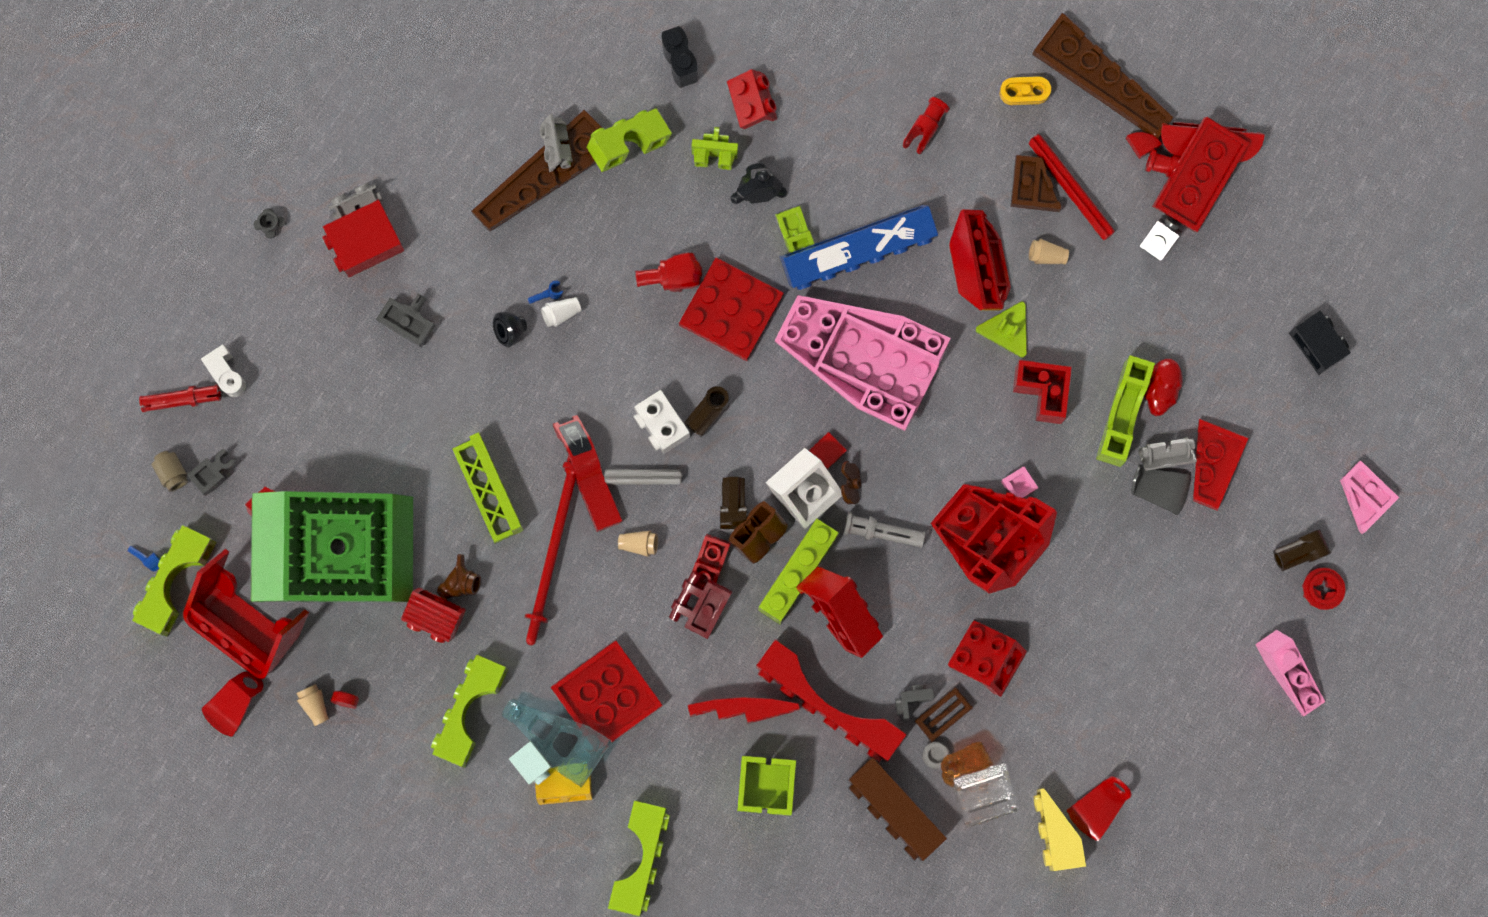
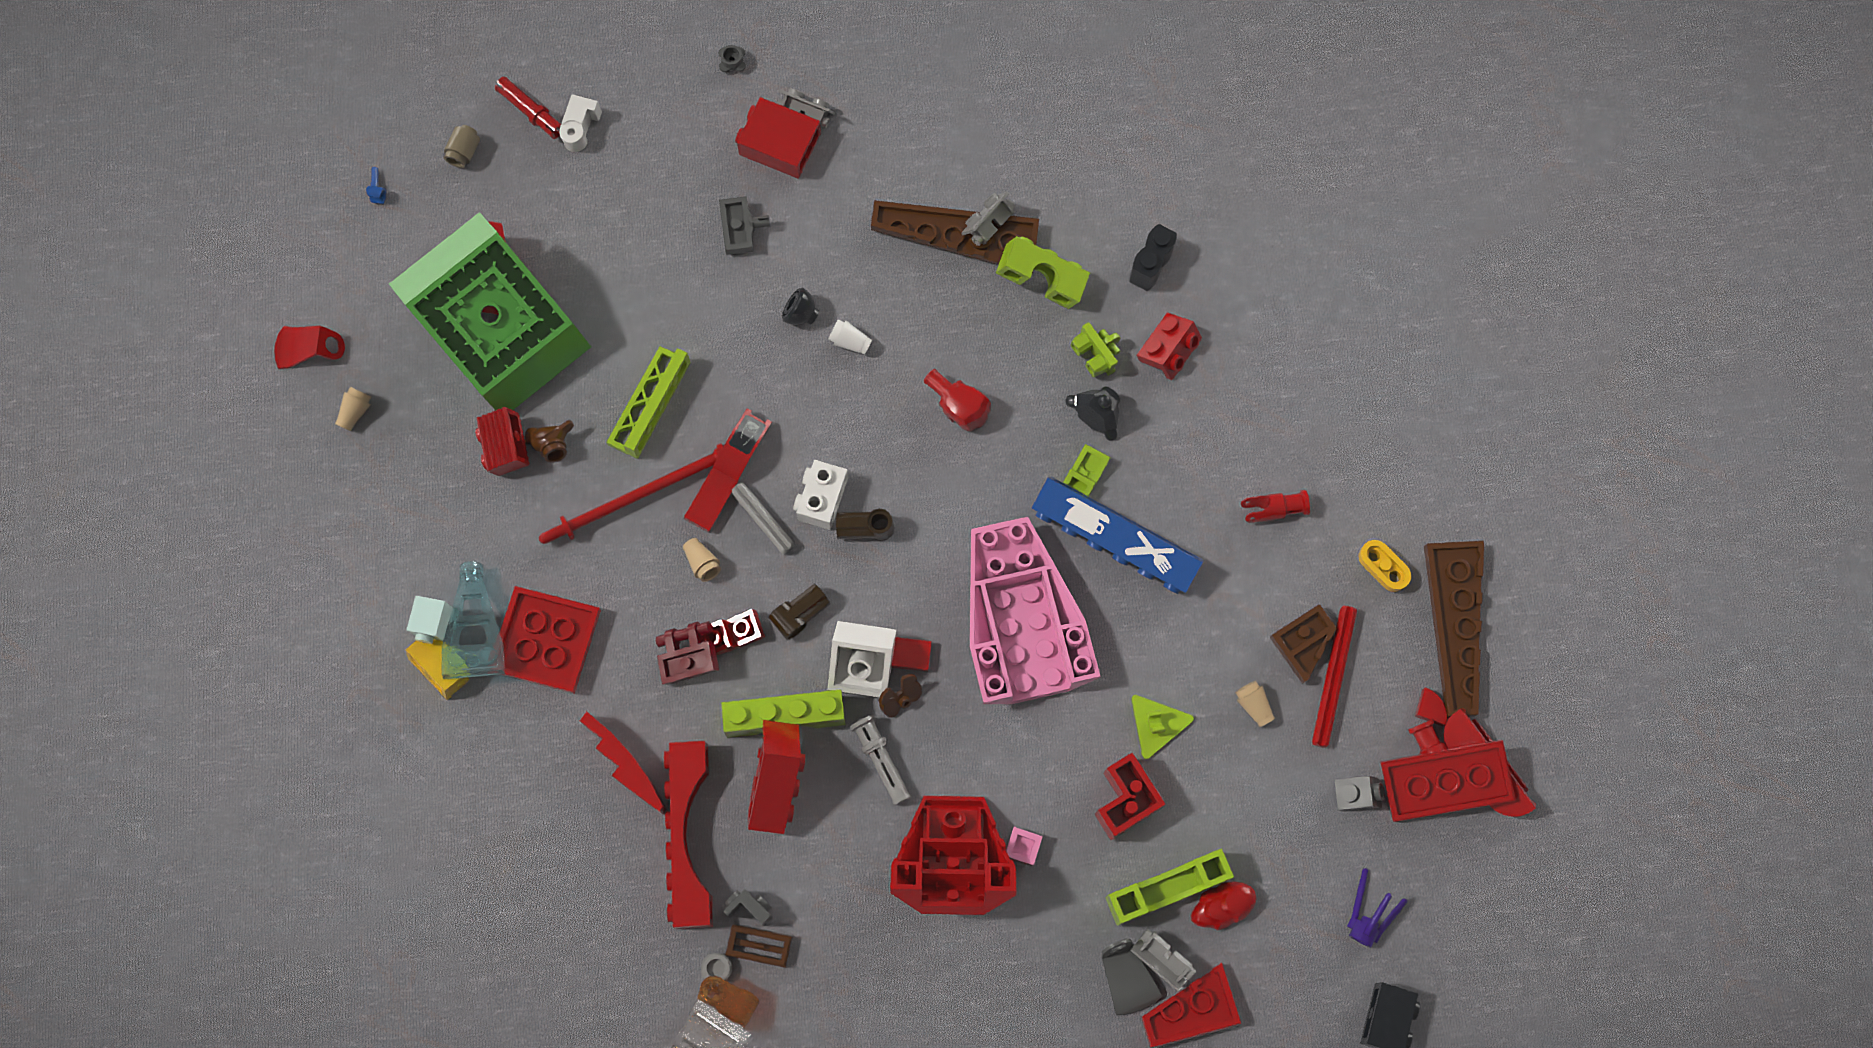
camera: 50 degrees right, 5 degrees down
(156, 608) = (338, 226): lime arch -> none
(208, 474) = (483, 177): dark grey plate -> none
(234, 624) = (369, 302): red windscreen -> none
(345, 699) = (375, 429): red tile -> none
(482, 679) = (407, 545): lime arch -> none
(547, 293) = (857, 316): blue hand -> none
(630, 894) = (456, 763): lime arch -> none
(731, 309) = (971, 474): red plate -> none
(758, 532) = (789, 651): reddish brown brick -> none
(766, 786) = (569, 837): lime piece -> none
(896, 809) = (635, 971): reddish brown brick -> none
(979, 261) = (1194, 649): red wedge -> none
(987, 657) = (841, 945): red bracket -> none
(1253, 308) = (1368, 930): none -> dark purple plant

